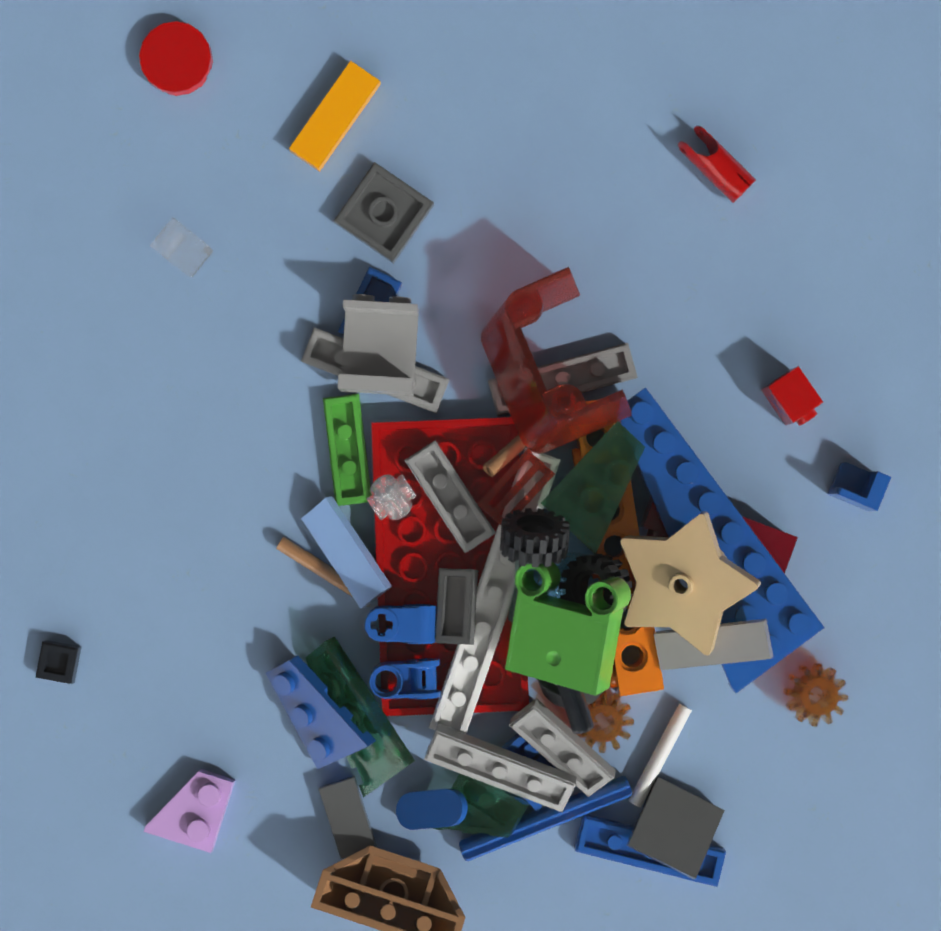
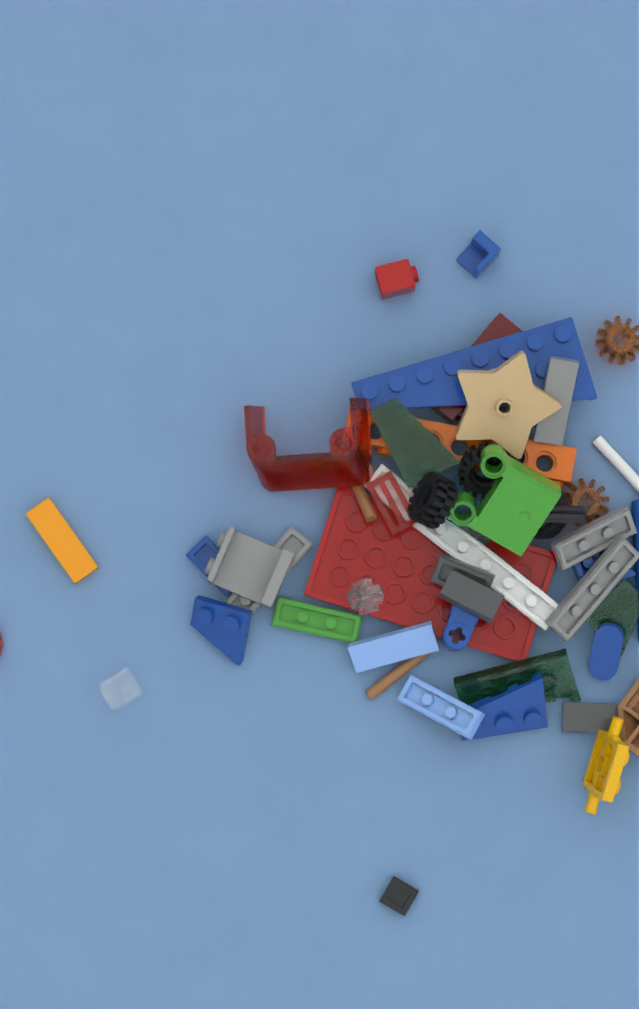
camera: 70 degrees left, 5 degrees down
(195, 812) = (547, 831): lavender wing -> none
(289, 858) = (605, 766): none -> yellow plate
(292, 634) = (440, 707): none -> light blue tile
(299, 341) = (222, 625): none -> blue wing
(383, 212) = (148, 530): dark grey tile -> none
(408, 679) = (503, 631): blue piece -> none
(435, 626) = (471, 596): none -> dark grey tile
(450, 496) = (380, 554): light grey tile -> none
(583, 371) = (322, 424): light grey tile -> none
(719, 167) = (207, 270): red piece -> none

